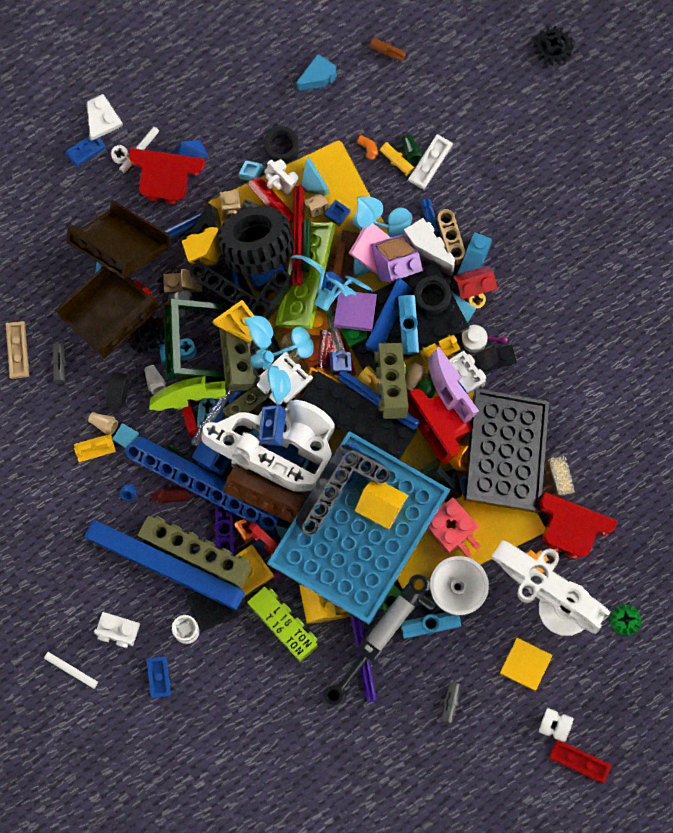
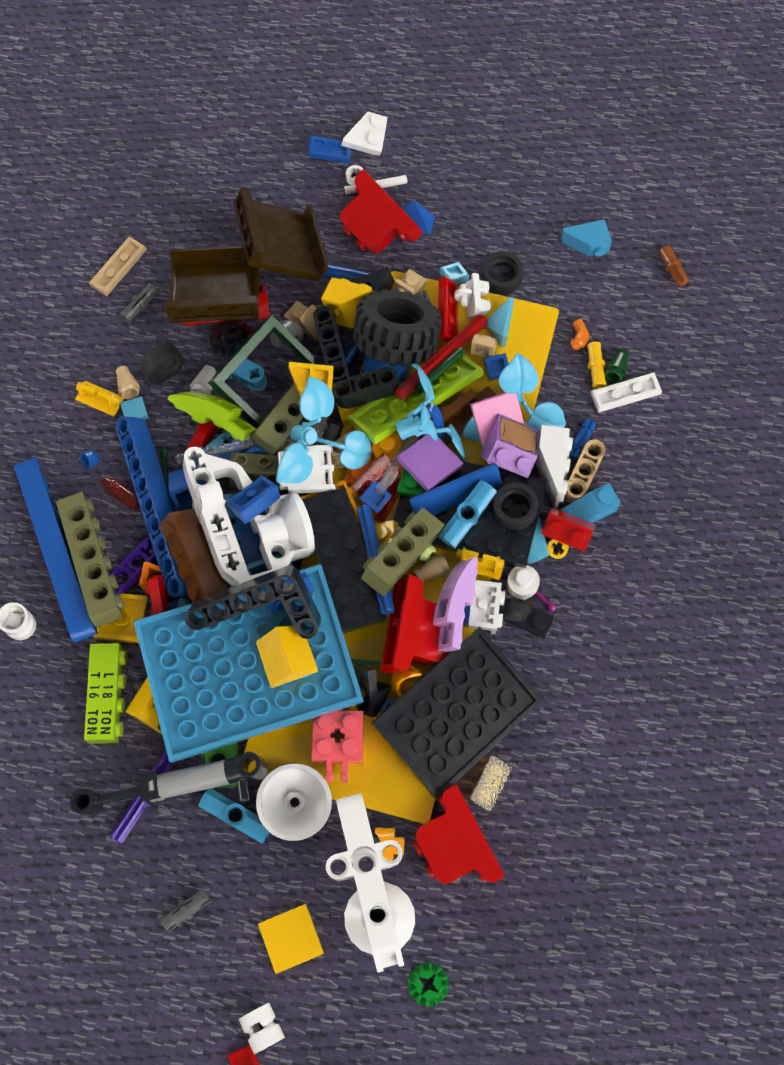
camera: 40 degrees right, 5 degrees down
(209, 612) = (52, 626): black tile -> none
(427, 387) = (433, 589): green cone -> none

